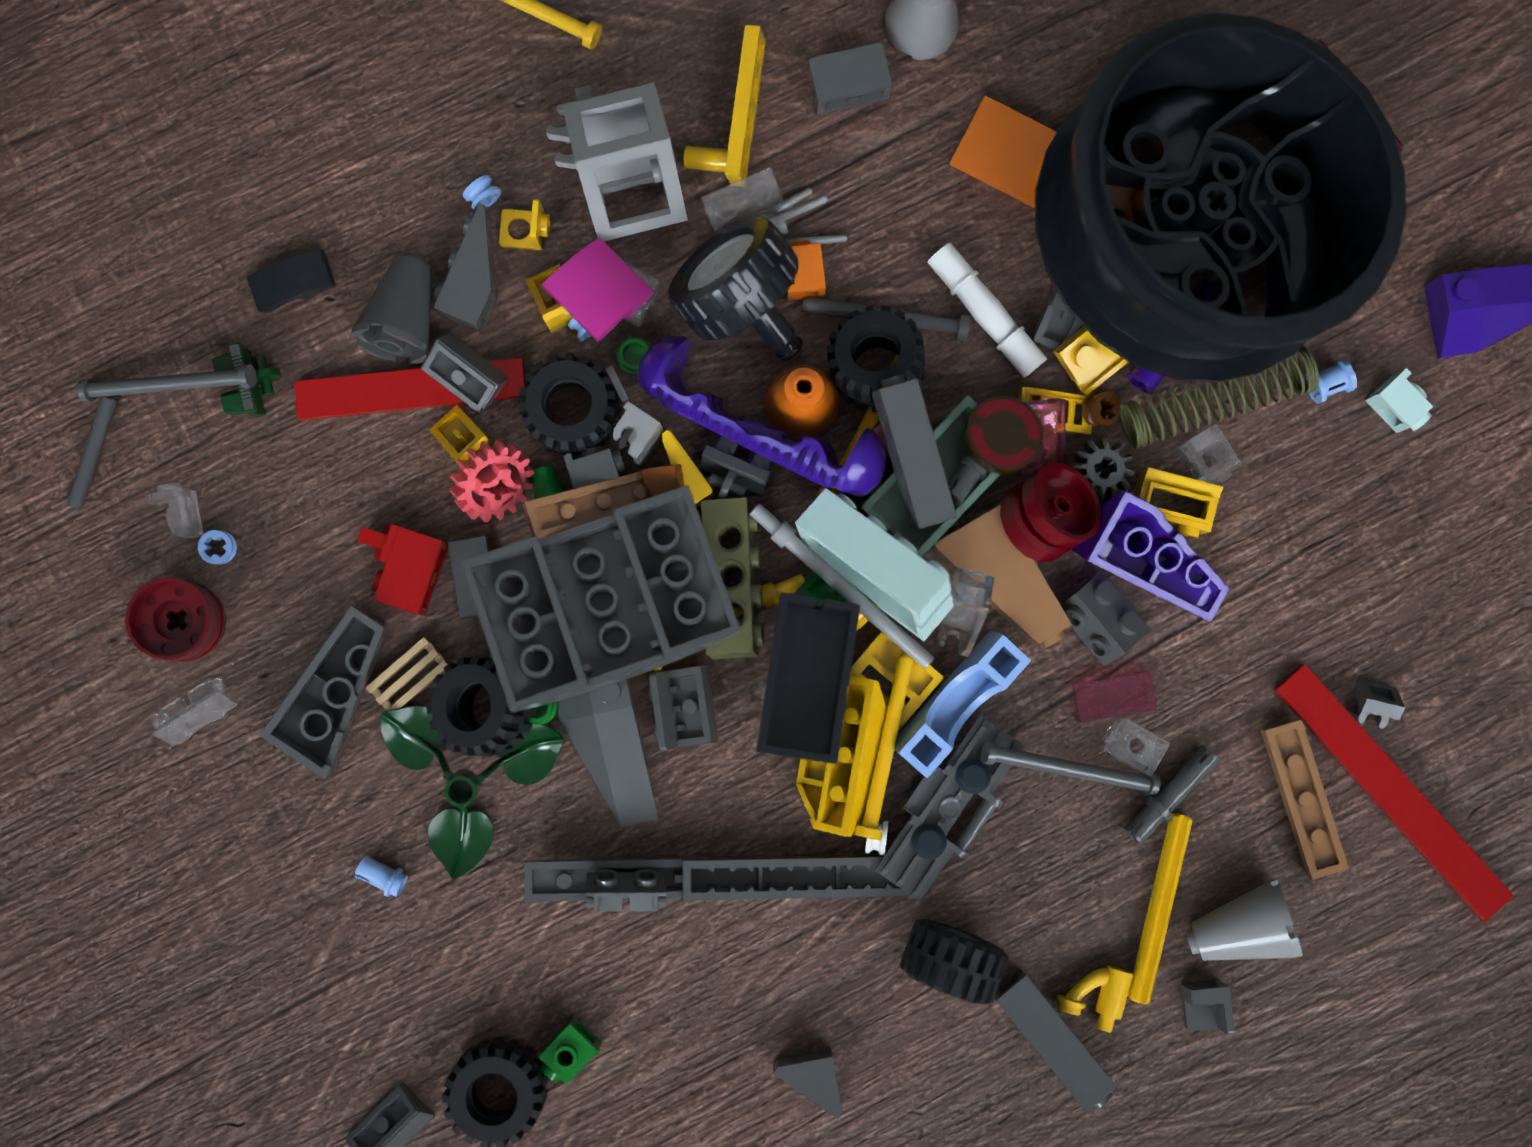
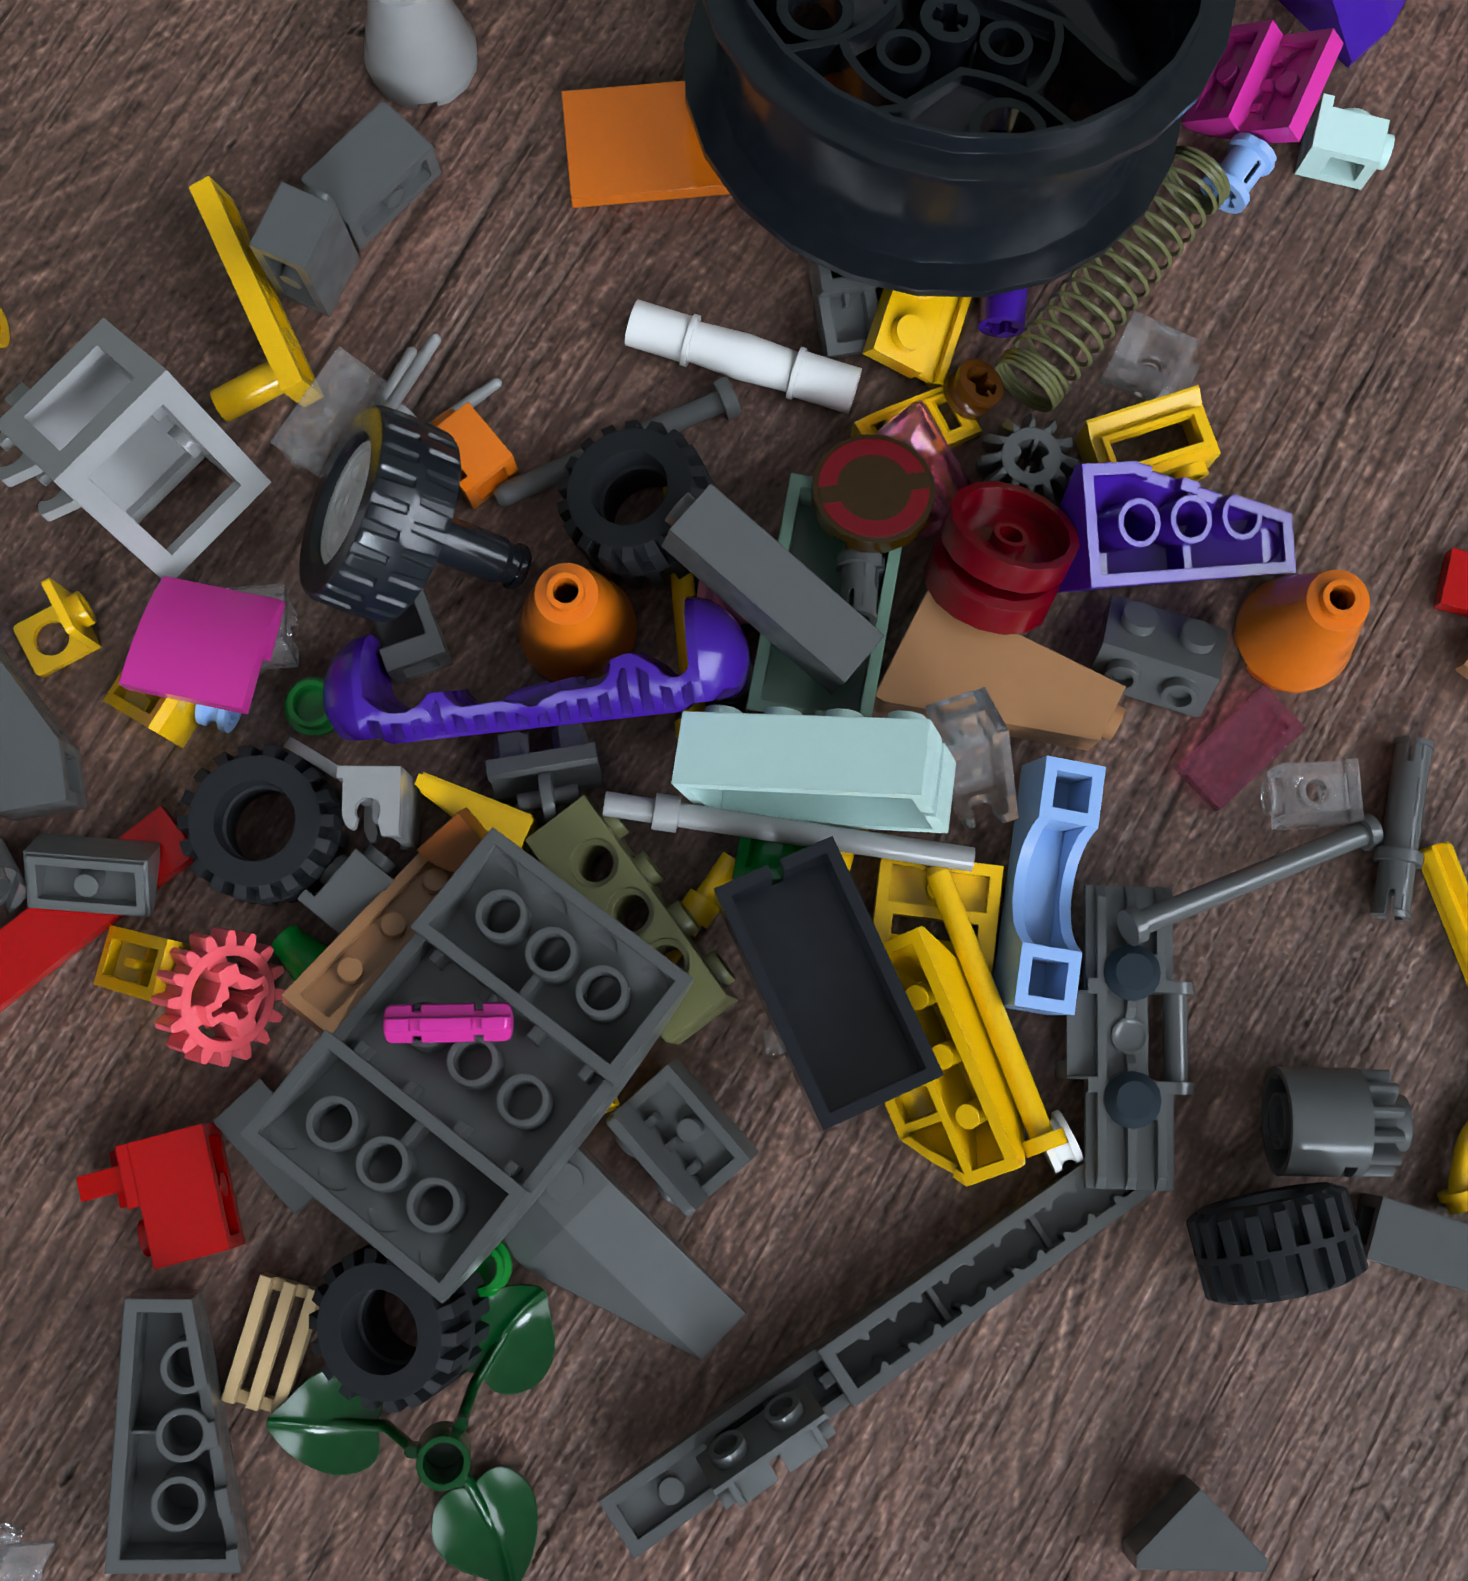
camera: 30 degrees left, 5 degrees down
(601, 572) = (448, 1022): none -> dark pink axle
(708, 357) = (413, 642): none -> dark grey panel
(787, 100) = (305, 248): none -> dark grey brick
(1027, 921) = (1334, 1122): none -> dark grey gear
(1187, 654) = (1301, 628): none -> orange cone
(1380, 339) = (1265, 83): none -> dark pink slope

